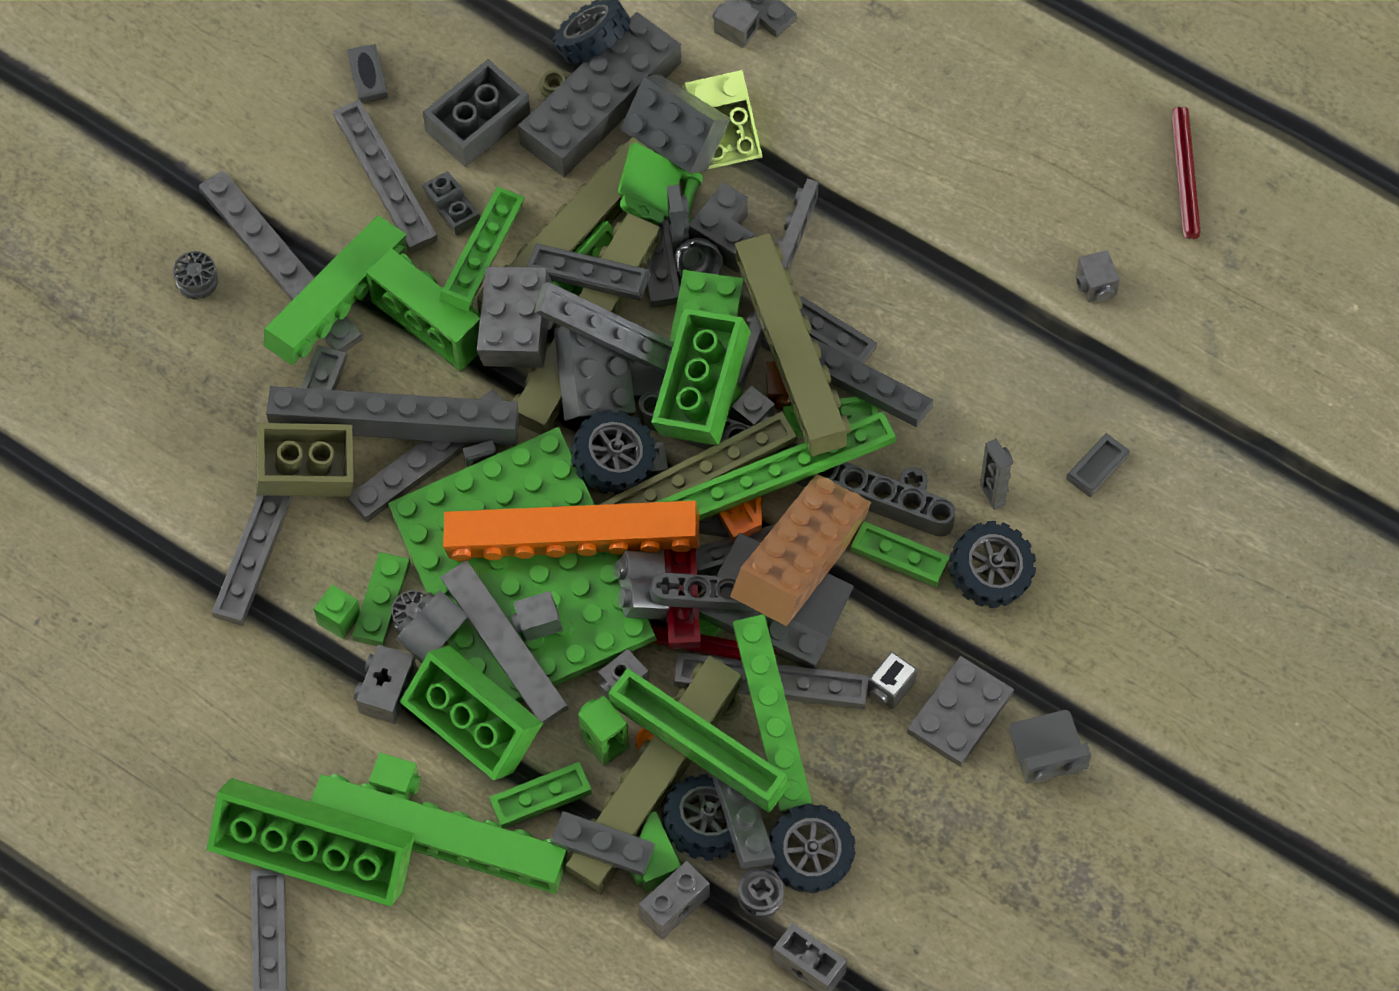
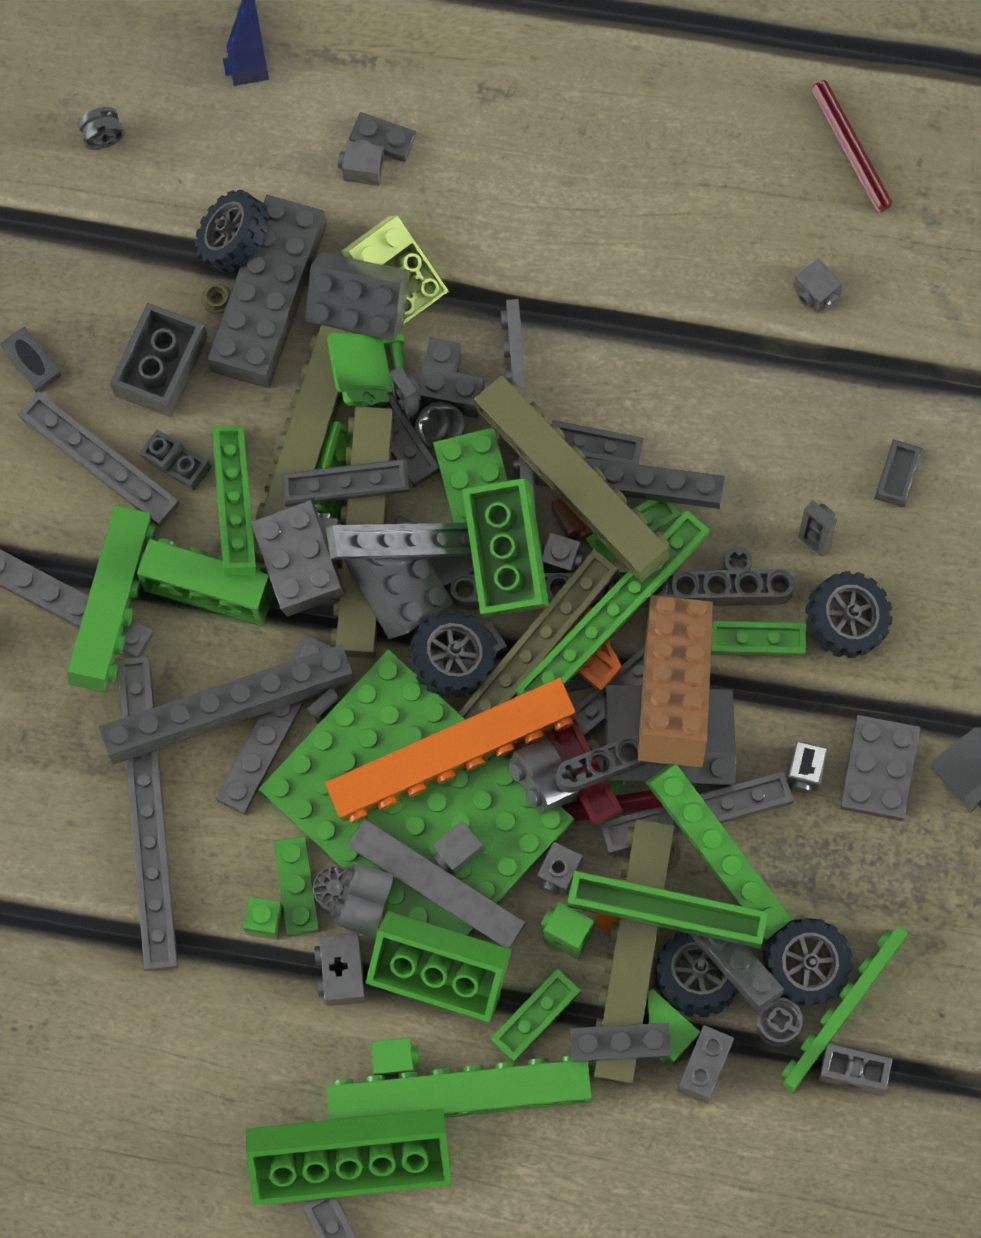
camera: 20 degrees left, 10 degrees up
(304, 459) = (164, 784): olive brick -> none
(836, 899) = (836, 1018): none -> bright green plate

